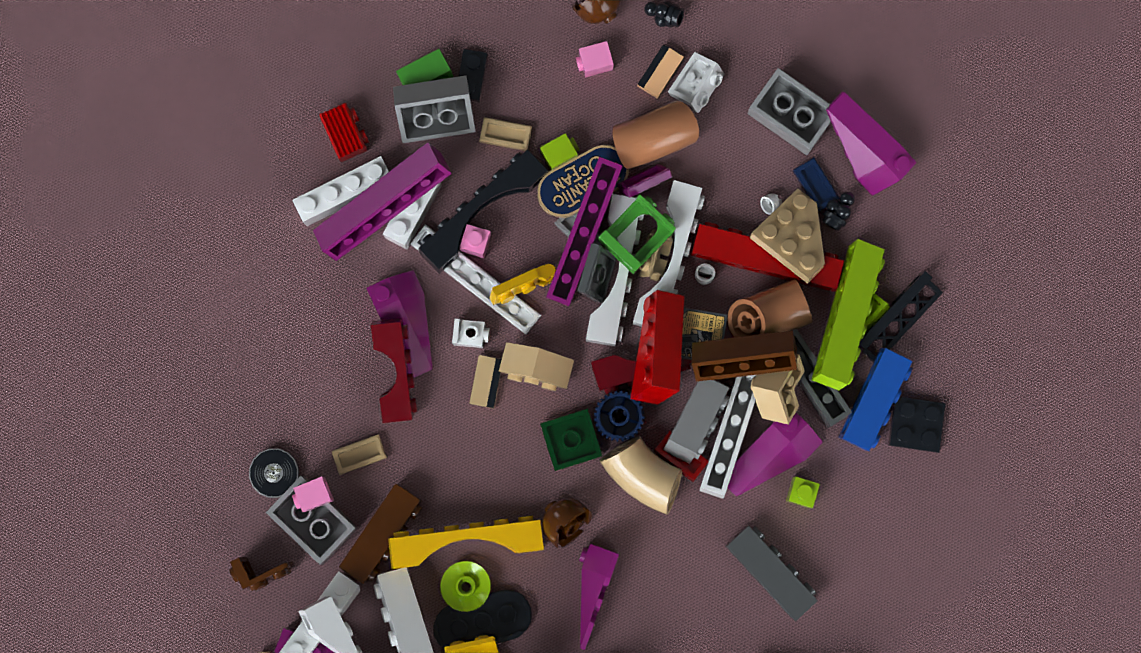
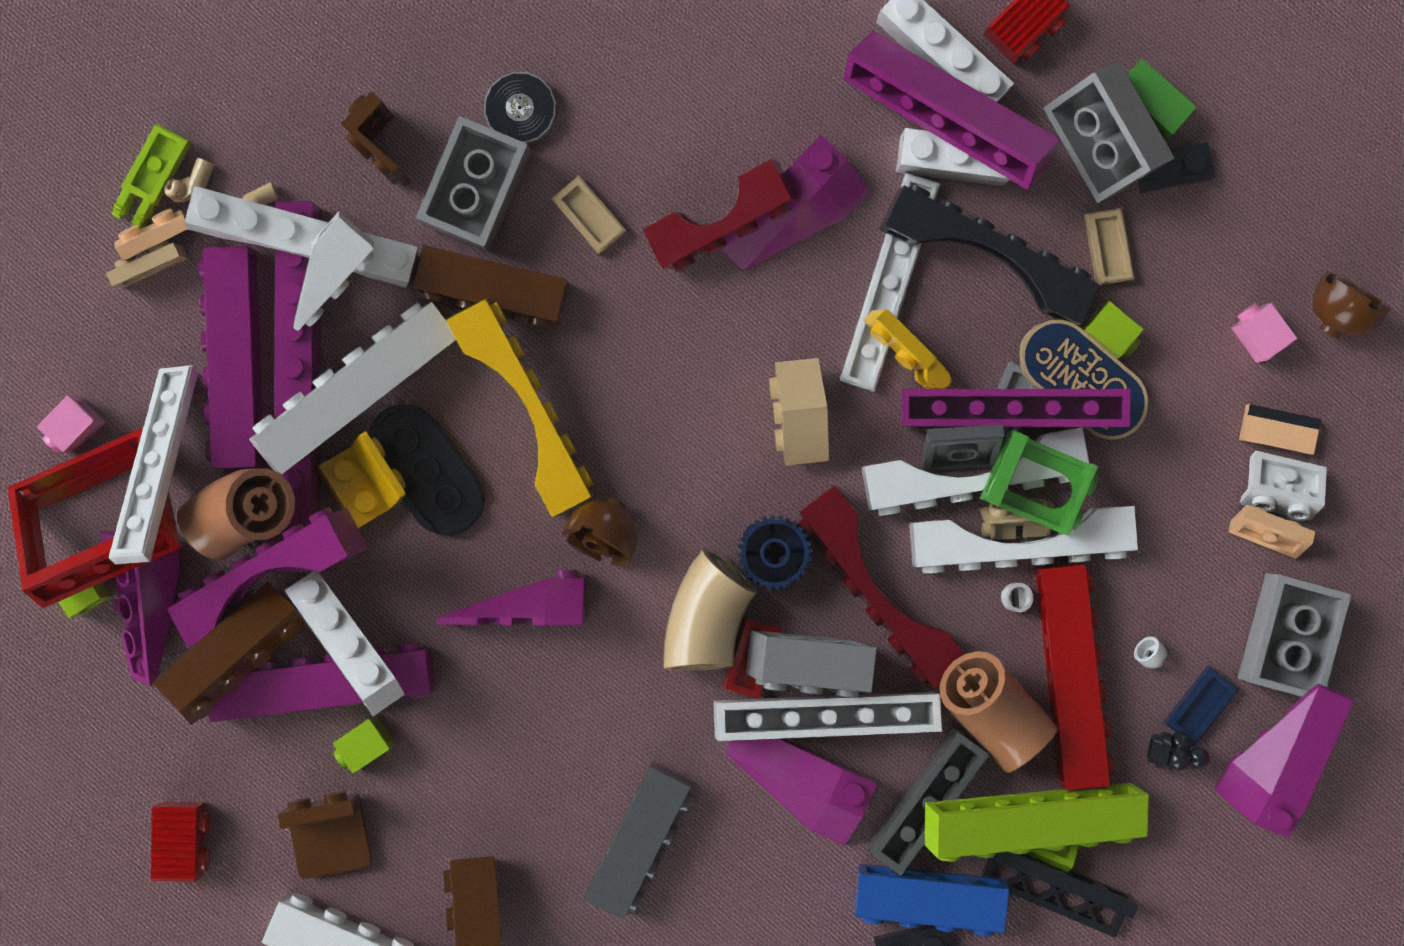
camera: 65 degrees right, 5 degrees up
(312, 494) = (506, 169): bright pink brick -> none
(460, 337) = (808, 288): white brick -> none
(463, 573) = (459, 410): lime dish -> none
(475, 241) = (943, 261): bright pink brick -> none
(486, 382) = (753, 351): tan tile -> none
(571, 440) = (717, 498): dark green plate -> none
(644, 180) = (1117, 464): magenta tile -> none
(655, 134) = (1190, 456): nougat brick -> none
(659, 348) = (889, 575): red wedge -> none
(666, 13) = (1366, 408): black piece -> none
(701, 327) = (928, 622): tile -> none
(722, 100) = (1271, 531): none -> light nougat plate
(744, 356) = (923, 699): reddish brown brick -> none
(776, 393) = (899, 757): tan brick -> none
(794, 236) = (1118, 703): tan plate -> none
(802, 492) = (764, 844): lime brick -> none

